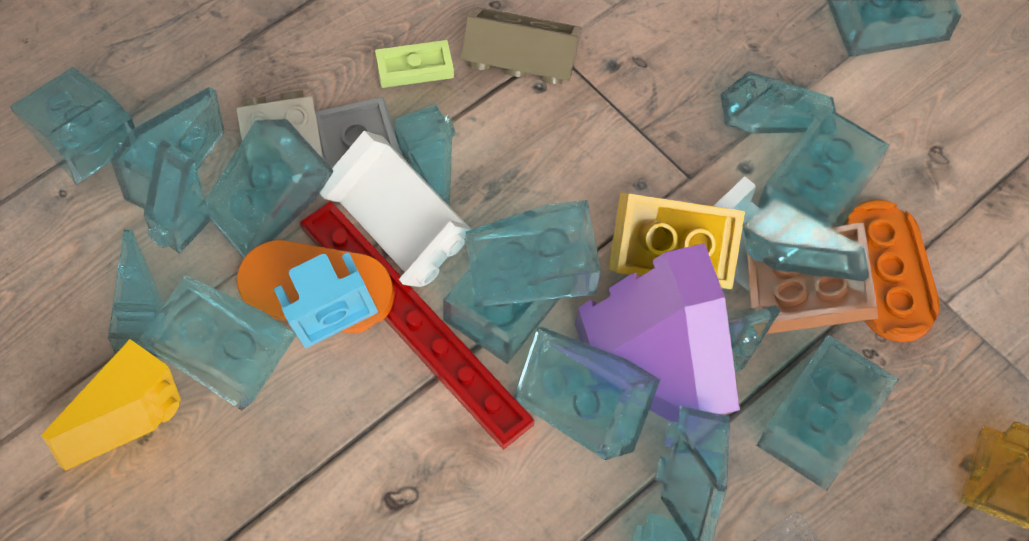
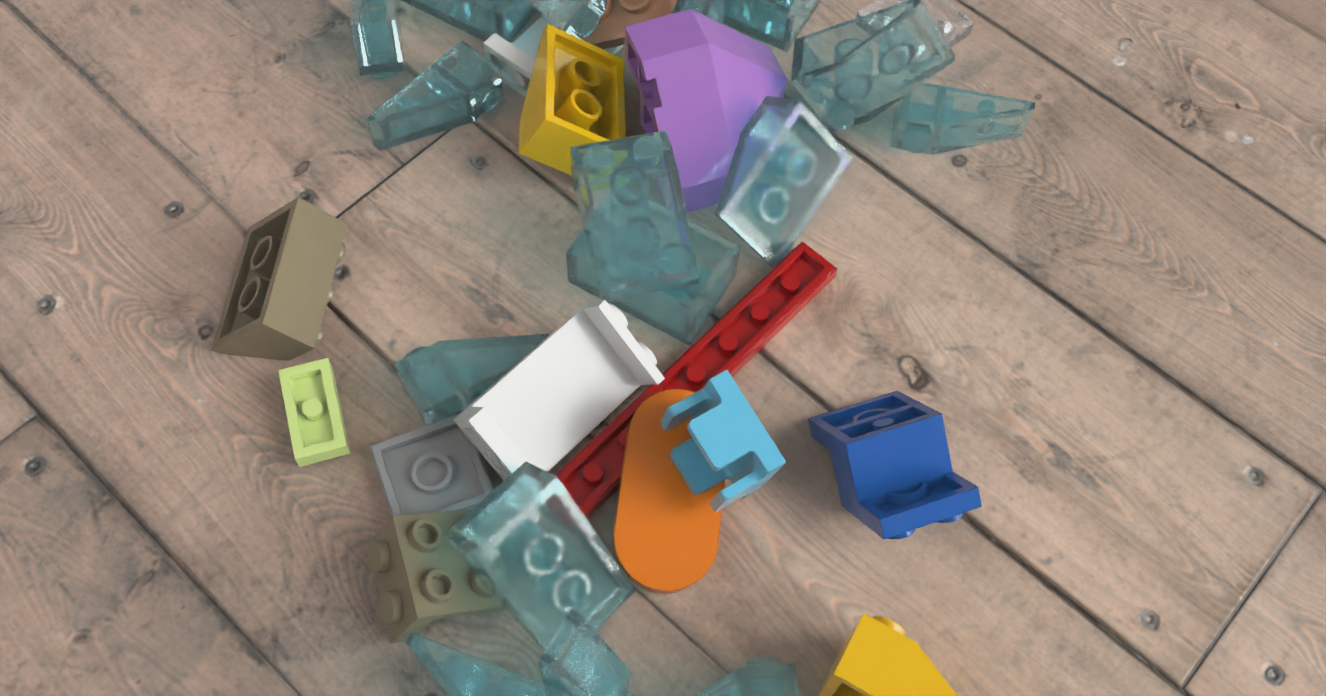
camera: 95 degrees left, 0 degrees up
(218, 341) = (782, 585): clear light blue slope -> none
(304, 439) = (894, 464): none -> blue bracket
(702, 158) = (439, 99): none -> clear light blue slope

